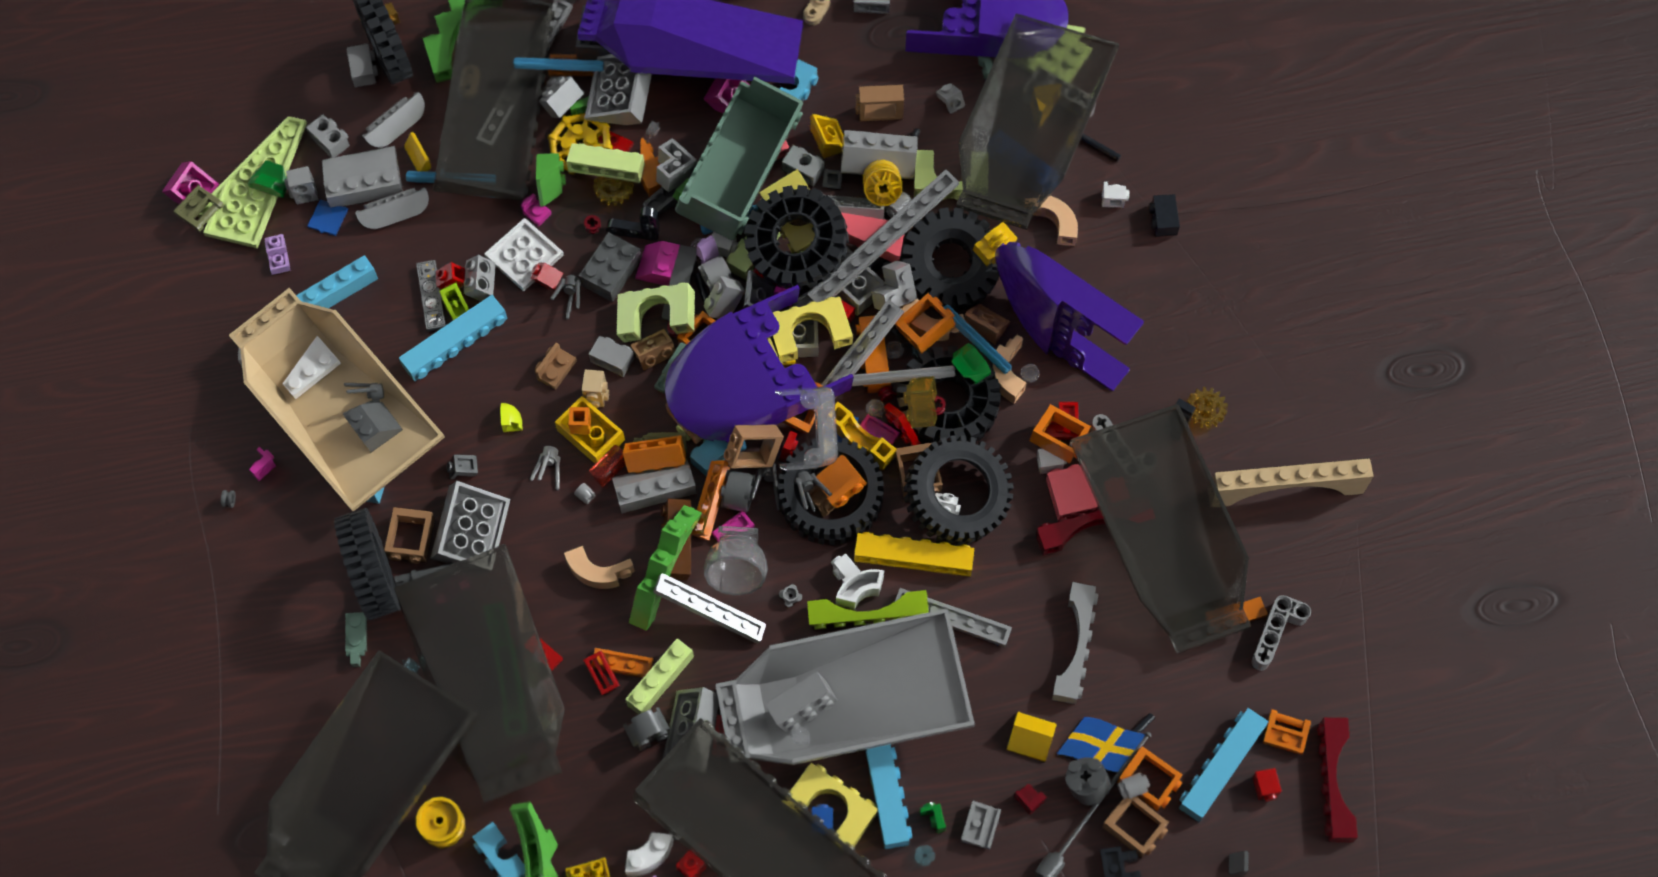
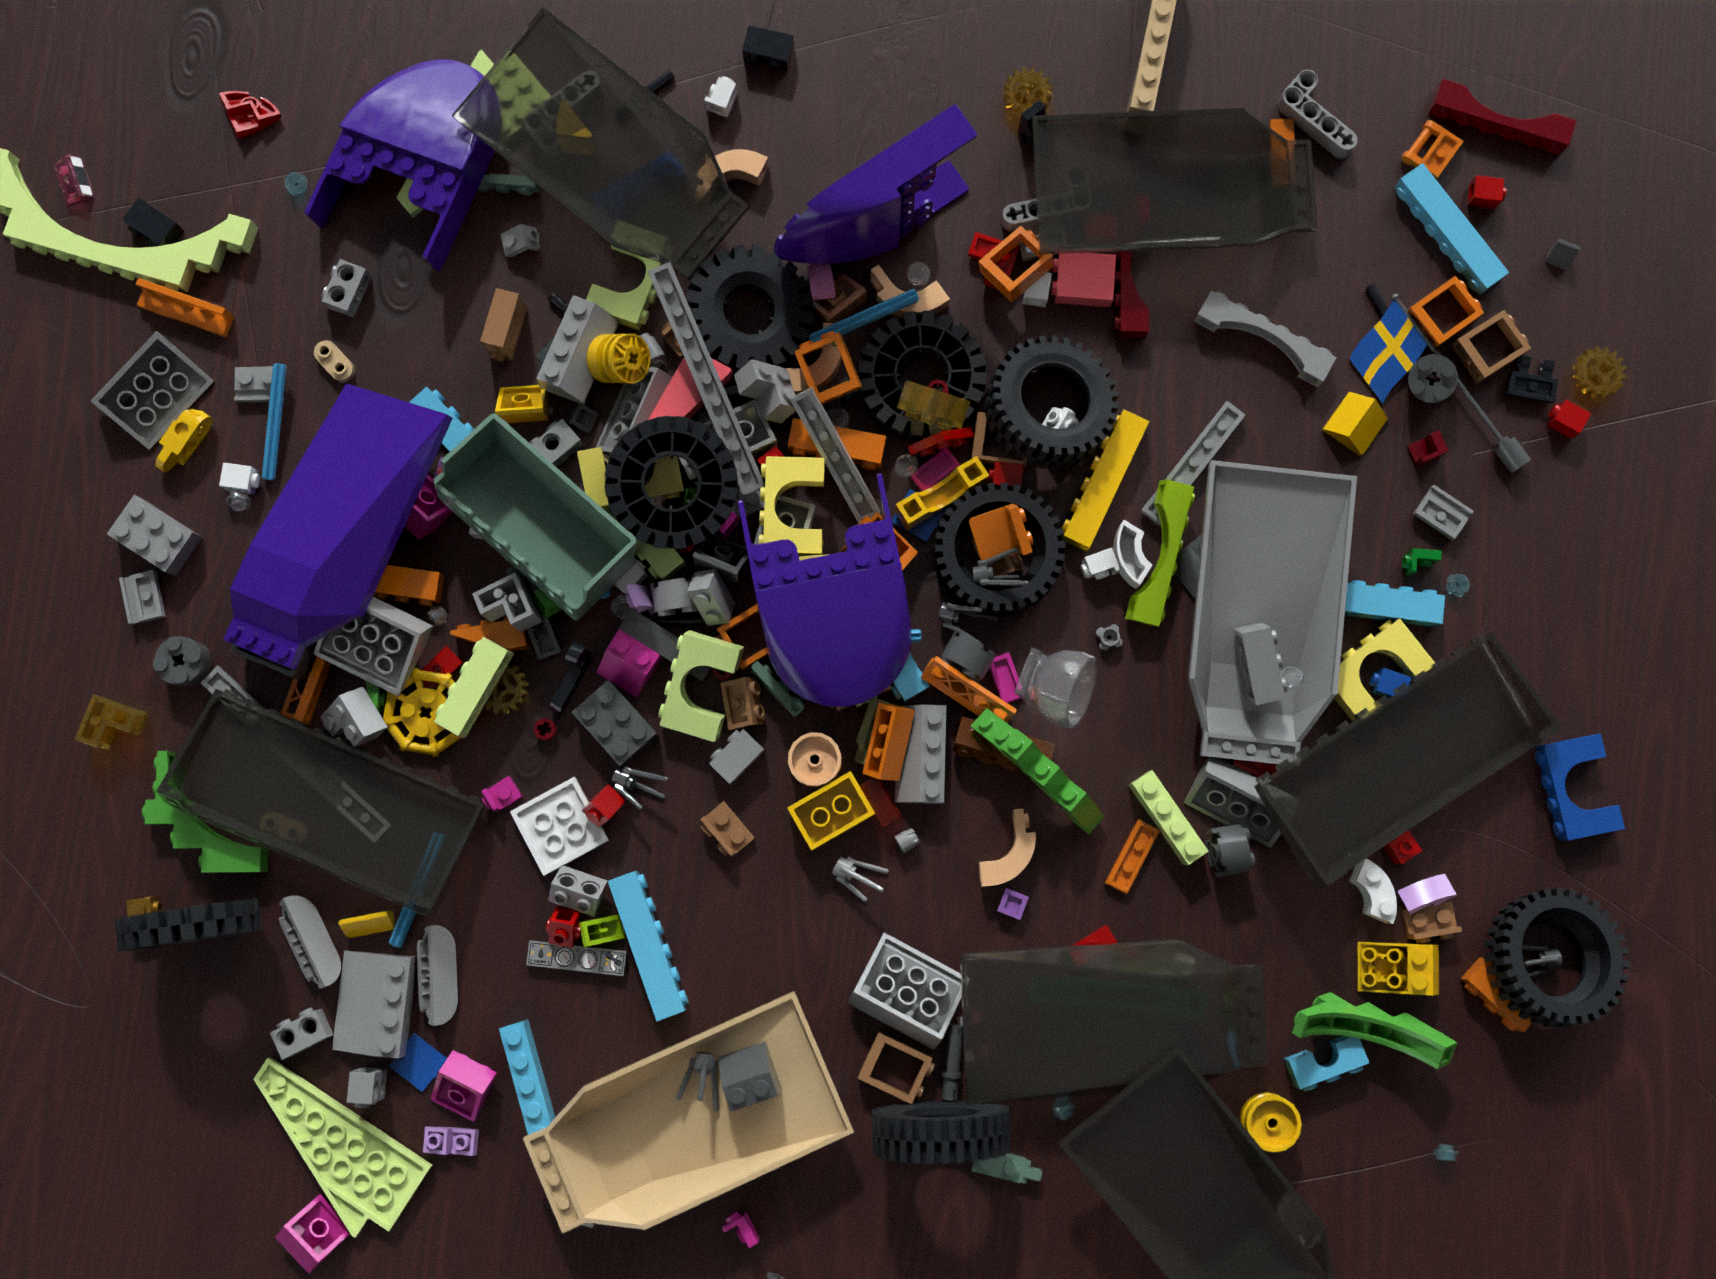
camera: 70 degrees left, 15 degrees up
(194, 204) = (346, 1234): olive plate -> none
(269, 179) = (342, 1125): green slope -> none
(311, 368) = (637, 1136): white wing -> none
(318, 248) = (463, 1085): none -> dark pink slope
(361, 65) = (209, 963): light grey brick -> none
(462, 465) = (824, 979): dark grey bracket -> none
(510, 418) = (777, 902): neon yellow brick -> none
(549, 177) = (468, 763): bright green slope -> none
(558, 64) = (311, 706): dark azure axle -> none
(558, 583) = (1012, 903): none -> medium lavender plate
(579, 420) = (827, 819): orange brick -> none
(595, 388) = (780, 789): tan brick -> none
(609, 687) = (1121, 887): red tile -> none
(625, 407) = (829, 759): none -> light nougat wheel
(668, 101) = (410, 584): none -> orange brick
(709, 608) = (1109, 735): plate -> none
(762, 458) = (928, 620): medium nougat window -> none
(789, 446) = (930, 580): red plate -> none
(823, 401) = (914, 524): clear windscreen -> none
(886, 393) = (893, 446): dark red bush -> none
(892, 481) = (1006, 473): none -> red brick
(902, 375) = (885, 423): light grey axle -> none
(971, 363) = (896, 334): green slope -> none
(990, 242) = (756, 250): yellow brick -> none
(995, 303) = (821, 281): none -> bright pink slope
(1133, 786) = (1459, 331): light grey brick -> none

